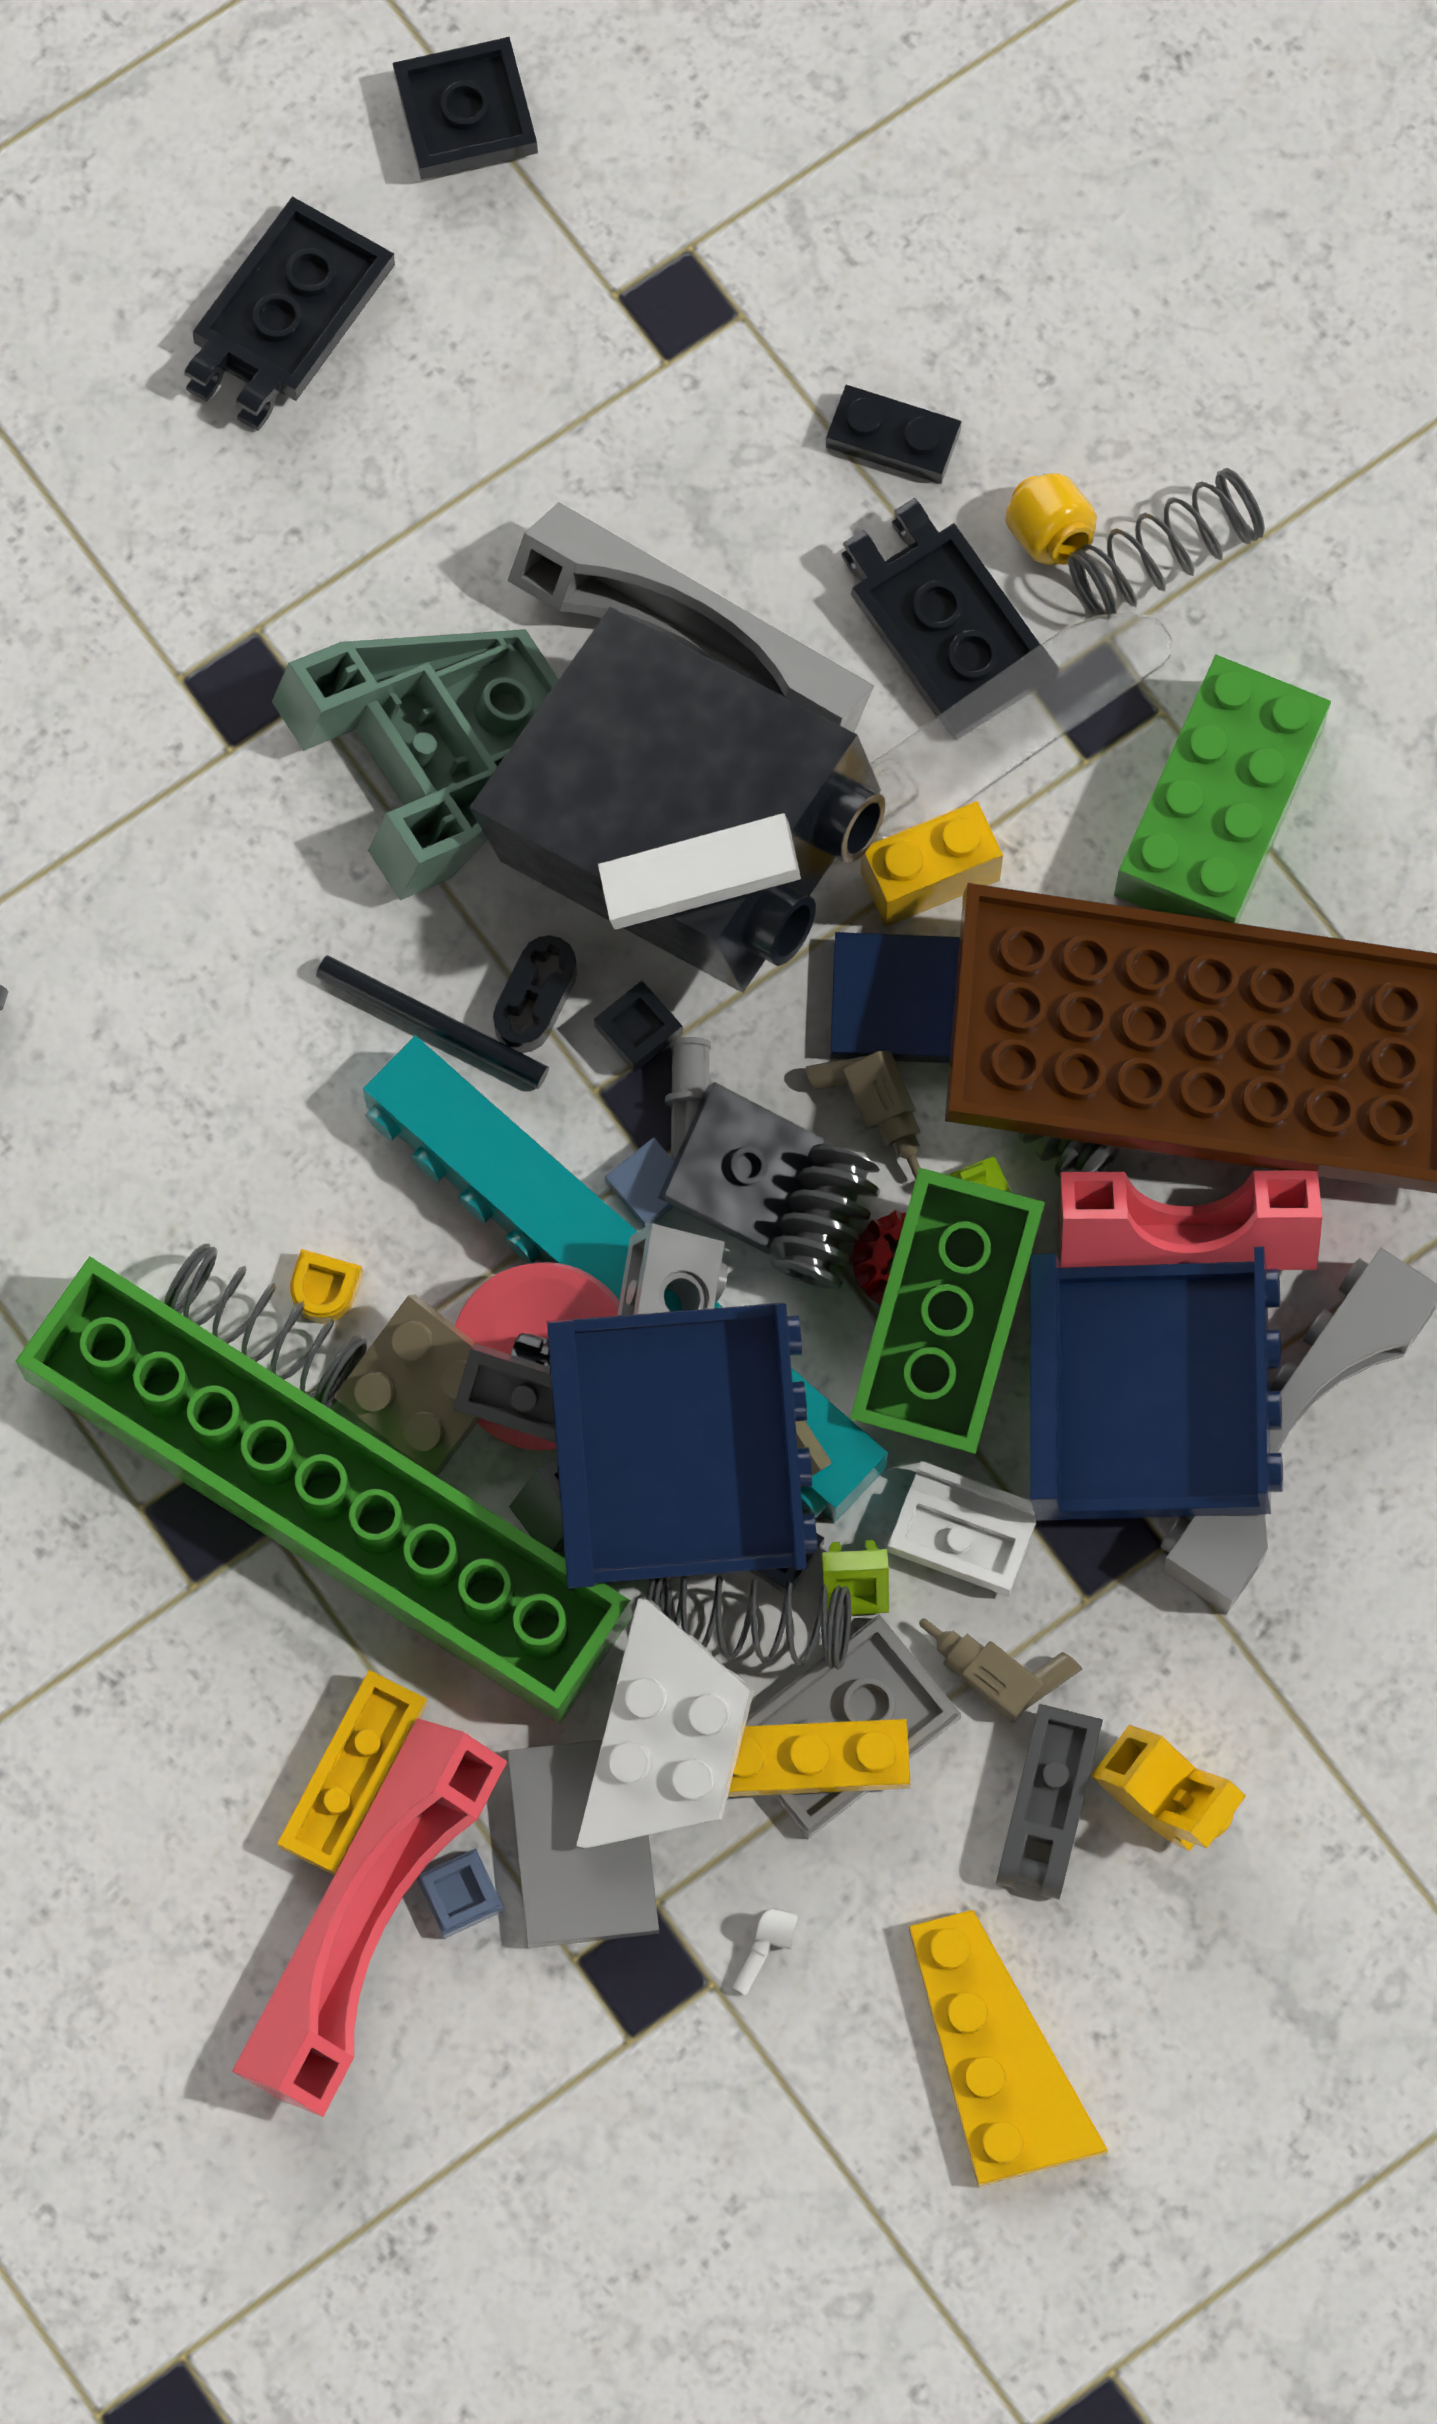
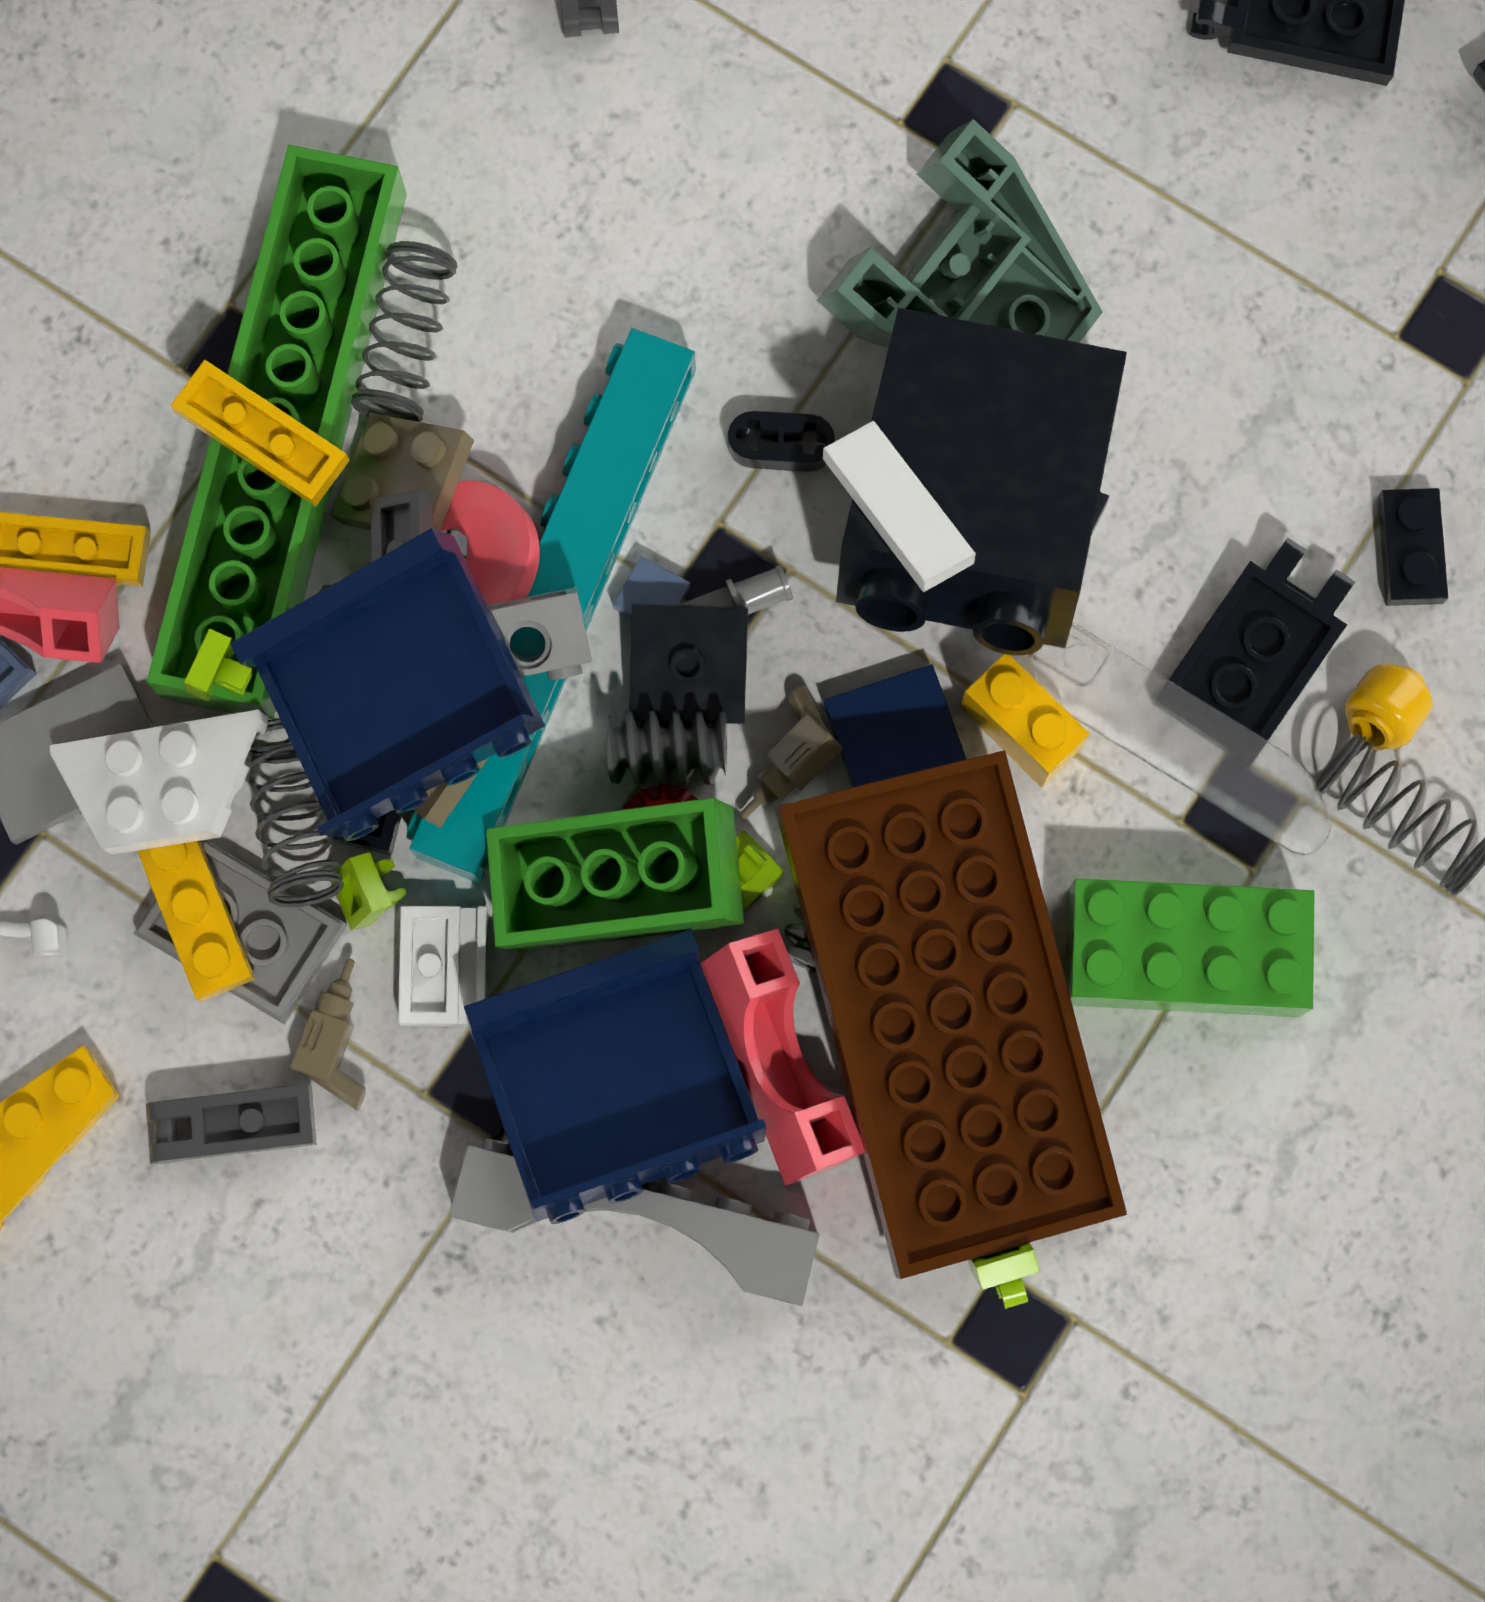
camera: 70 degrees right, 5 degrees up
(324, 1285) = (464, 371): yellow tile -> none
(338, 1492) = (260, 433): none -> yellow plate
(432, 1021) = (725, 370): black bar -> none
(580, 1623) = (214, 667): none -> lime tile
(589, 569) = (1171, 340): light grey arch -> none
(638, 1026) = (783, 533): black plate -> none
(1167, 1790) = (268, 1221): yellow brick -> none

